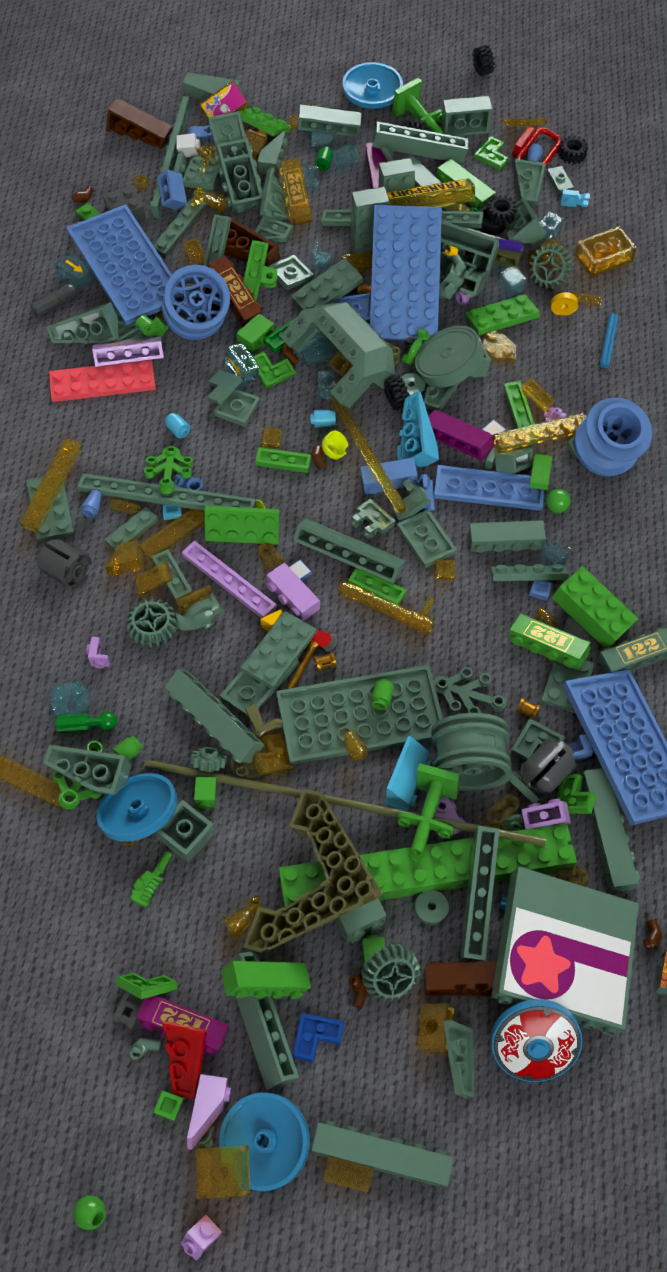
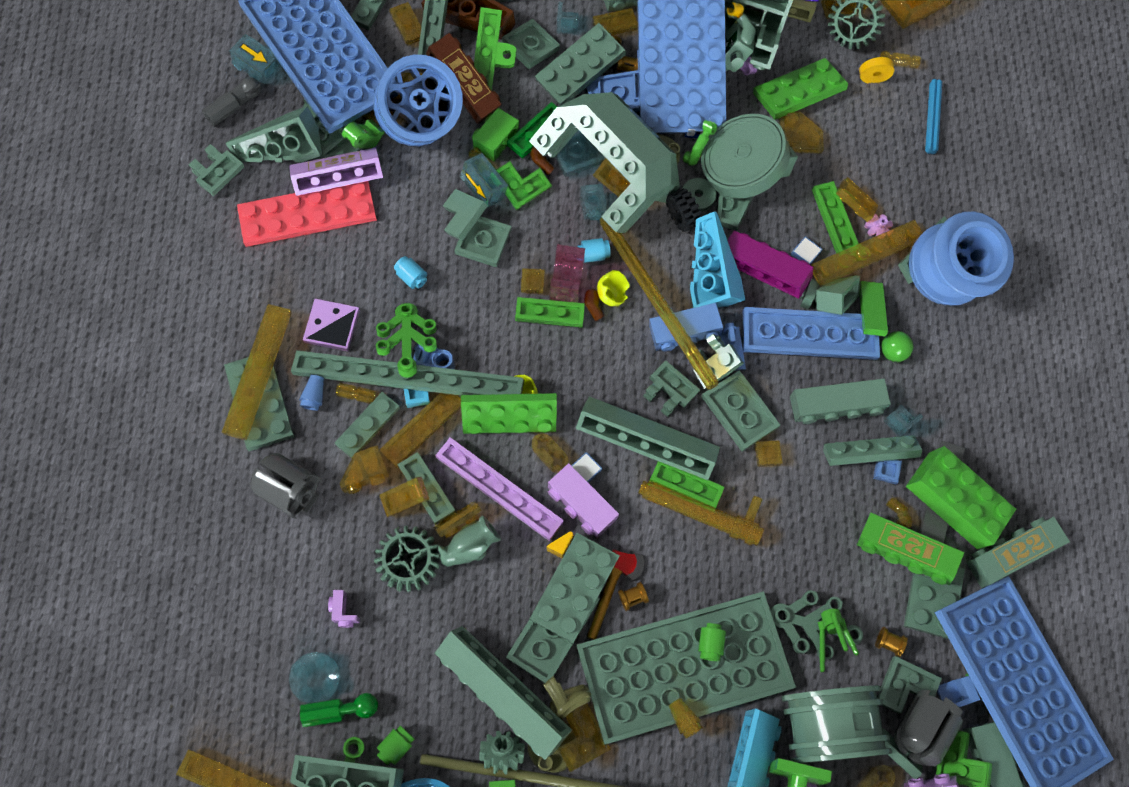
camera: 10 degrees left, 10 degrees up
(38, 348) = (219, 173): none -> sand green plate
(112, 459) = (331, 325): none -> tile
(300, 431) = (568, 265): none -> clear pink piece
(481, 690) = (834, 624): none -> bright green plant
(512, 281) = (808, 40): clear light blue brick -> none

